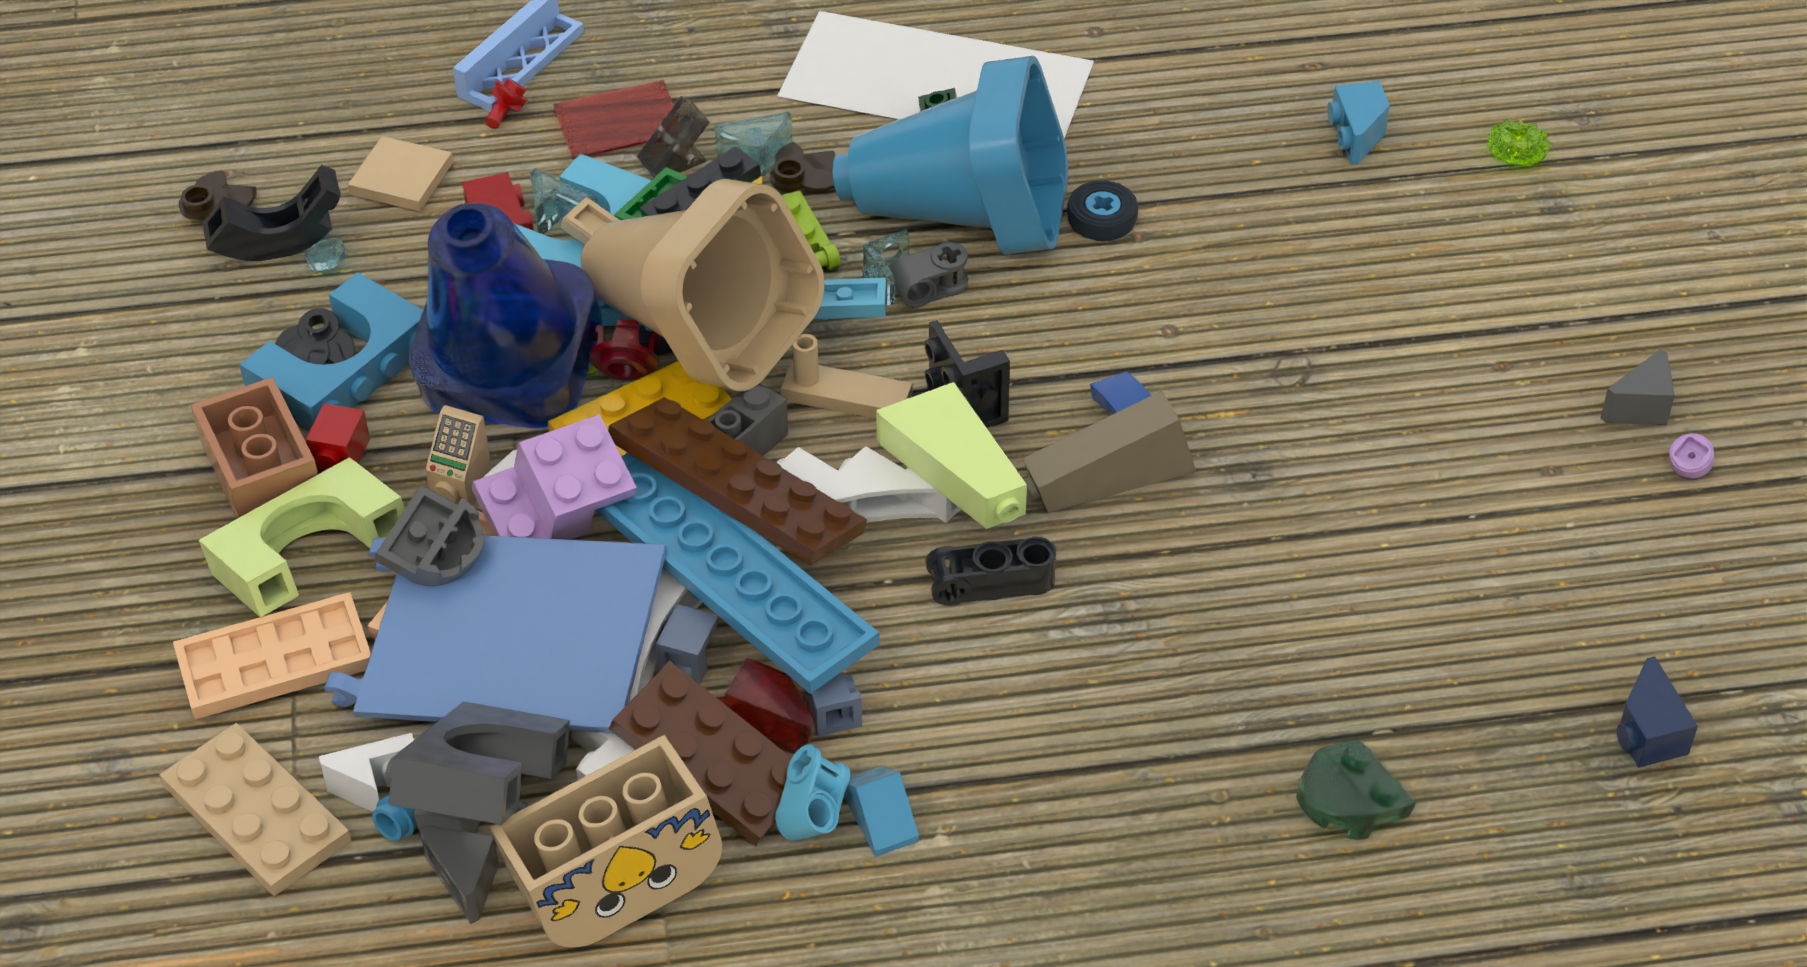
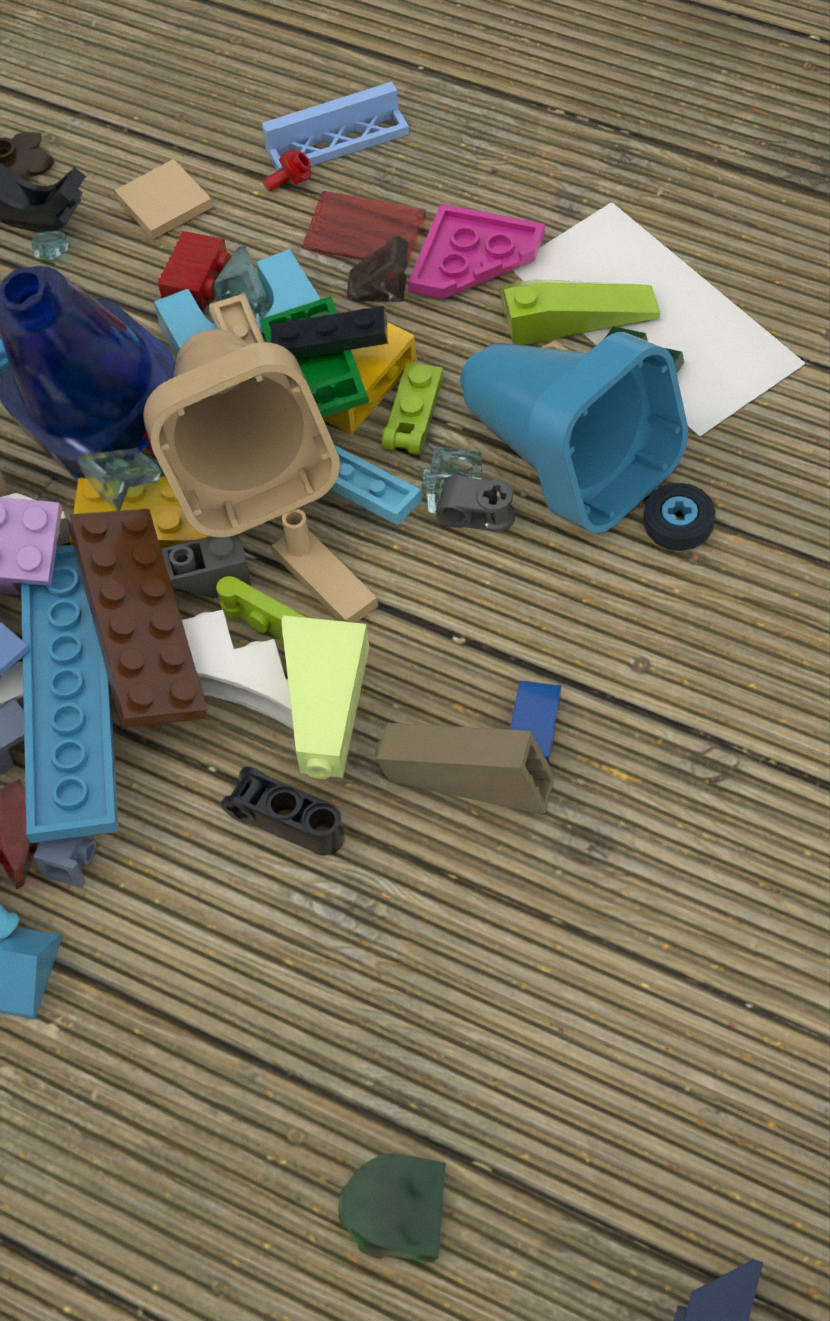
camera: 40 degrees right, 10 degrees up
(600, 392) = (116, 471): none -> clear light blue slope
(738, 86) = (470, 249): none -> dark pink plate
(756, 137) = (446, 305): clear light blue slope -> none
(800, 171) = (459, 344): dark brown plate -> none
(826, 437) = (257, 608): none -> lime plate
(864, 100) = (561, 308): none -> lime wedge
(980, 380) = (404, 634): black bracket -> none

